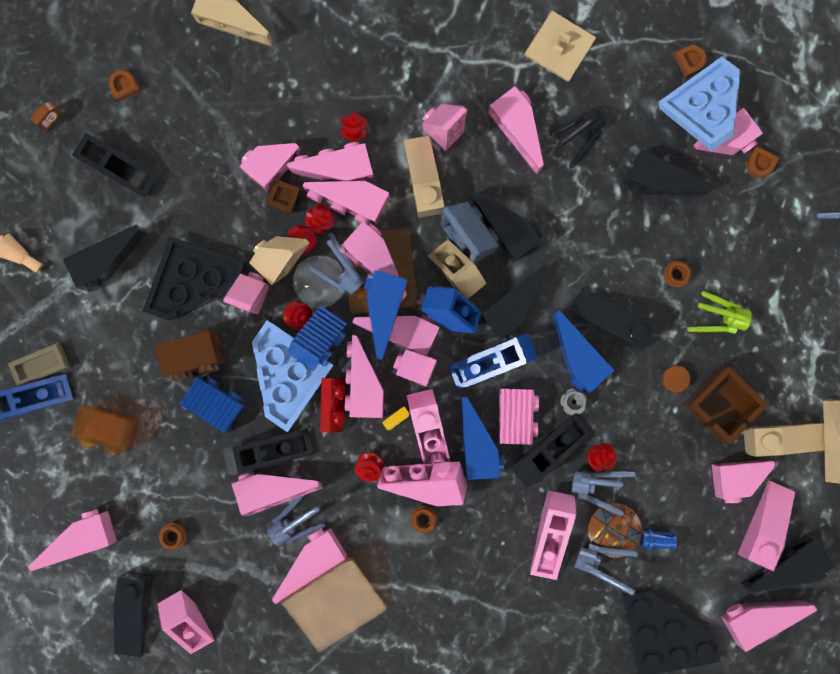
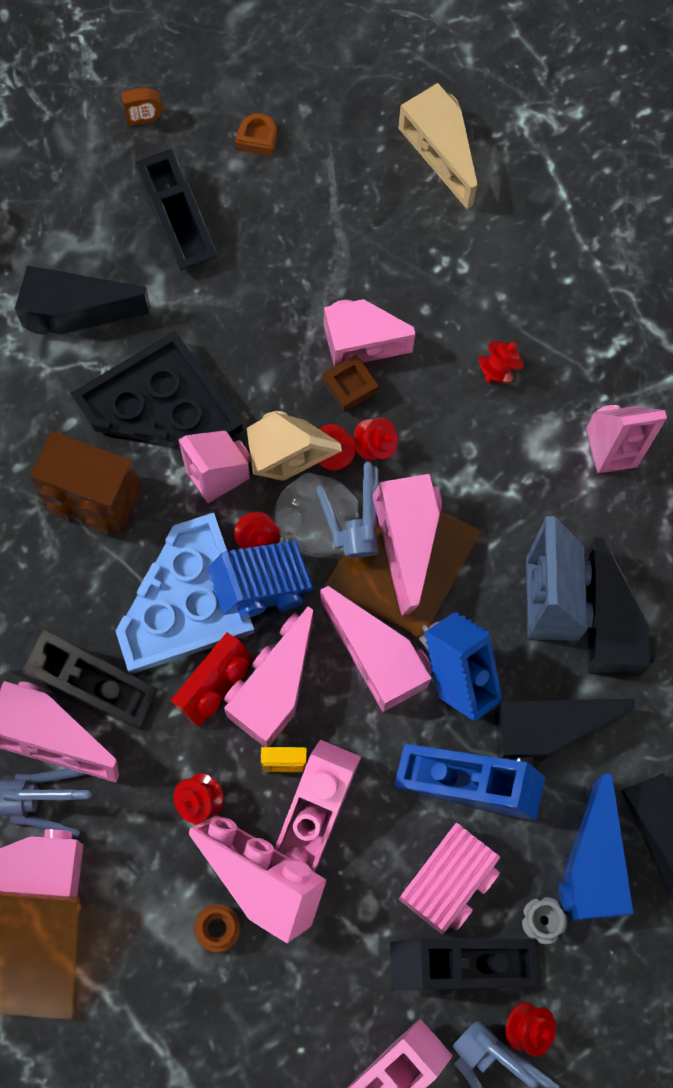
camera: 30 degrees right, 15 degrees down
(213, 404) = (63, 567): blue brick -> none
(335, 166) = (449, 397): bright pink slope -> none
(355, 197) = (435, 440): bright pink slope -> none
(383, 303) = (383, 587): blue slope -> none
(414, 367) = (360, 710): bright pink slope -> none
(424, 176) = (546, 481): tan slope -> none
(457, 269) = (511, 625): tan slope -> none
(479, 449) = (365, 888): blue slope -> none

